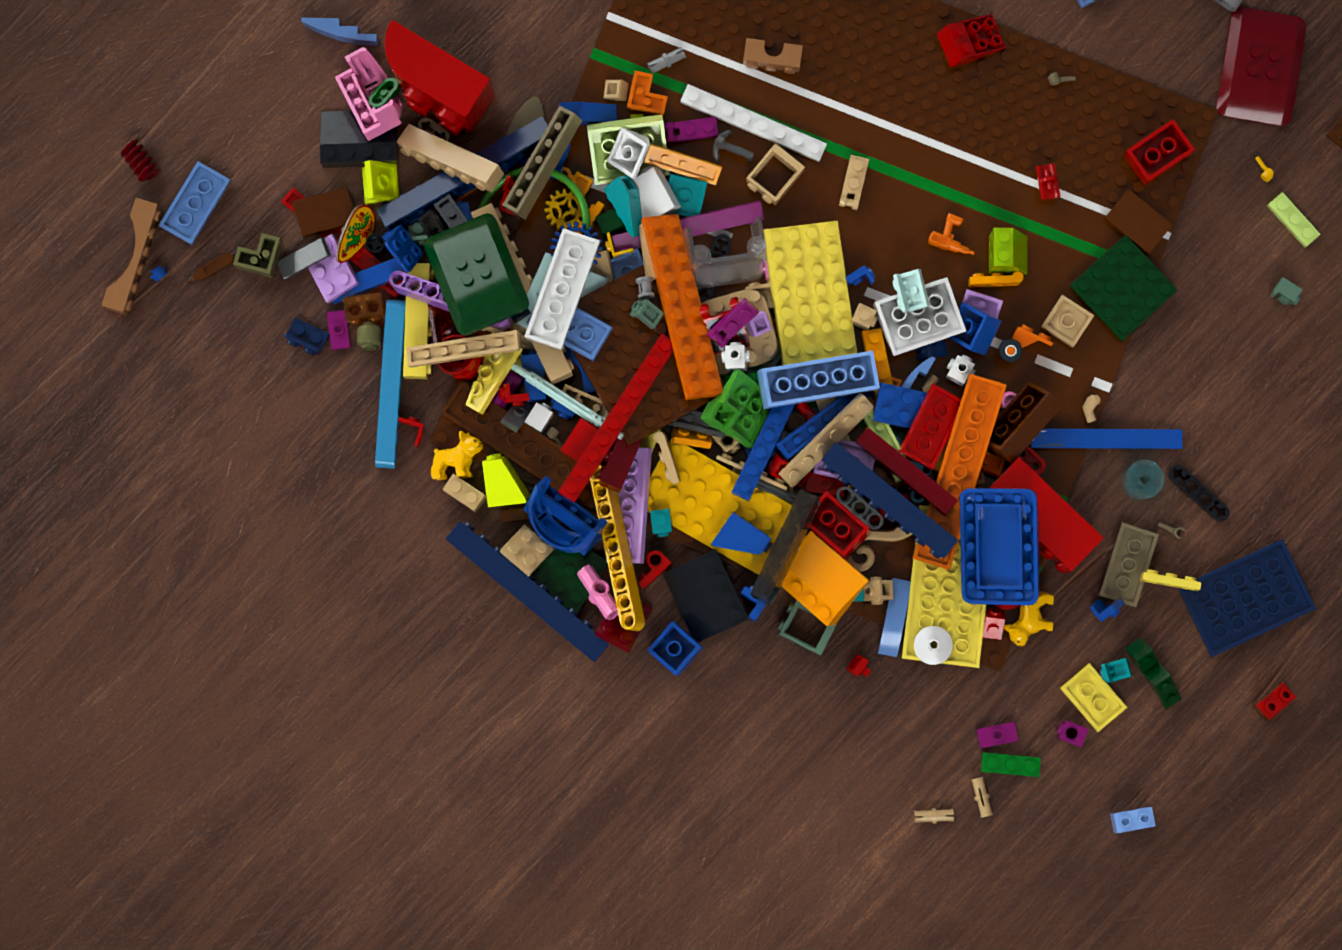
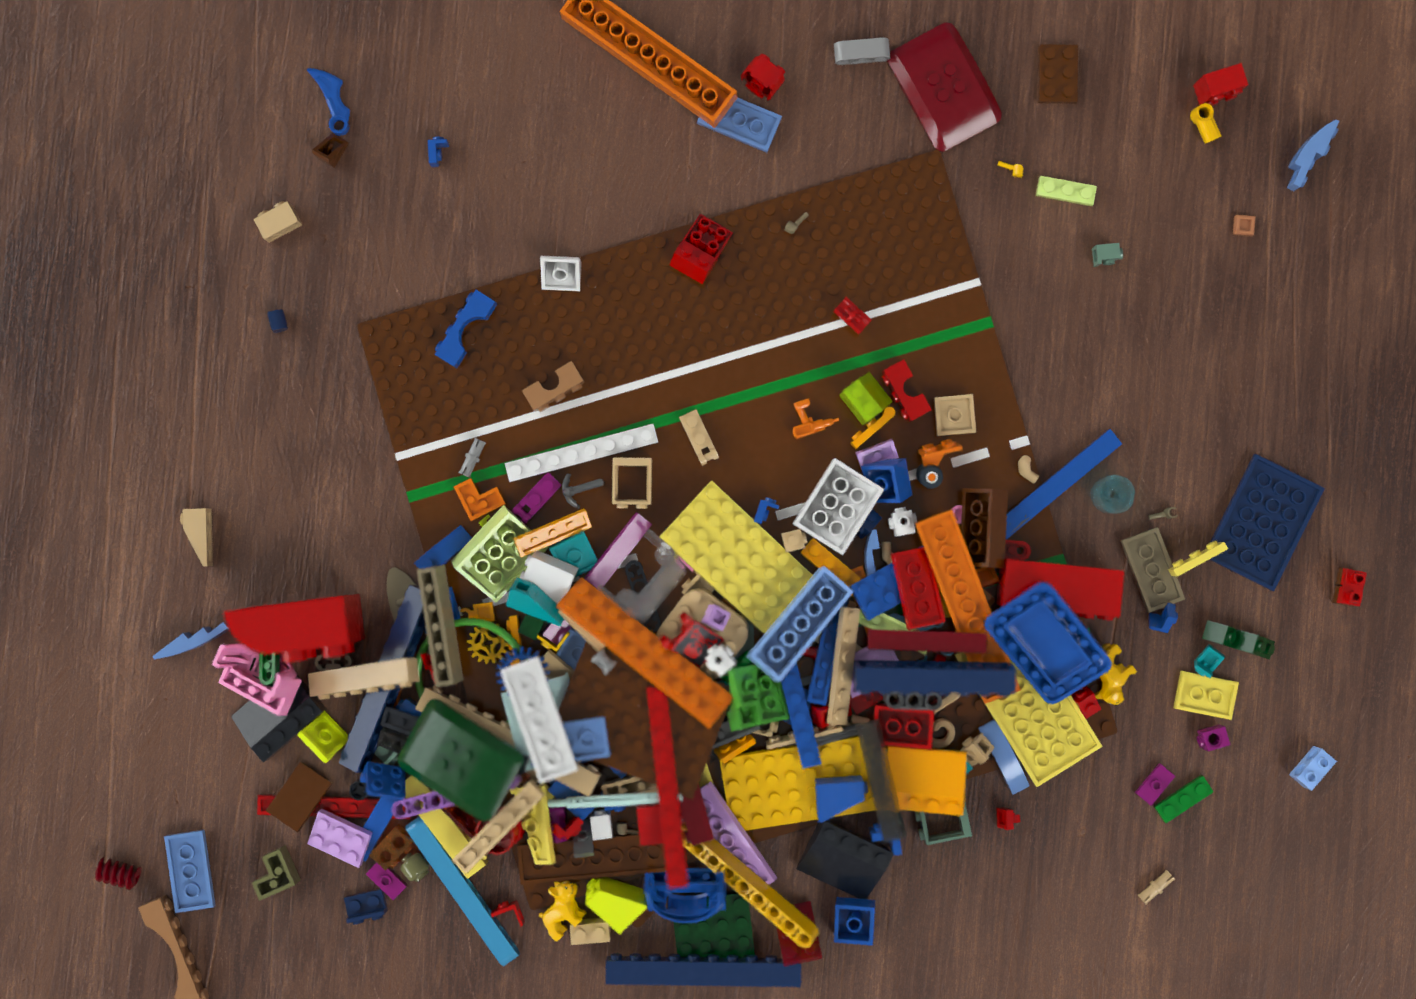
camera: 40 degrees left, 5 degrees up
(158, 273) = (206, 950): blue plate -> none
(212, 267) = (245, 910): reddish brown piece -> none
(304, 258) = (312, 848): tile -> none
(355, 232) = (336, 797): shield -> none
(526, 550) = (676, 941): tan plate -> none
(598, 592) = (749, 924): bright pink piece -> none
(616, 90) = (451, 513): tan slope -> none
(629, 152) = (502, 559): white slope -> none
(646, 312) = (621, 681): sand green bracket -> none
(647, 578) = (789, 870): red plate -> none
(661, 522) = (764, 832): teal bracket -> none
(667, 457) = (728, 780): tan plate -> none
(733, 322) = (696, 634): magenta plate -> none
(910, 291) = (816, 494): light aqua bracket -> none
(925, 652) = (1044, 754): white dish -> none
(978, 784) = (1182, 843): tan pin -> none
(1039, 288) = (911, 406): none -> red arch
(1123, 288) = (977, 353): dark green plate -> none
(1138, 221) = (947, 290): reddish brown tile -> none
(1158, 152) = (921, 222): red brick -> none
(1200, 490) = (1162, 468): black beam -> none

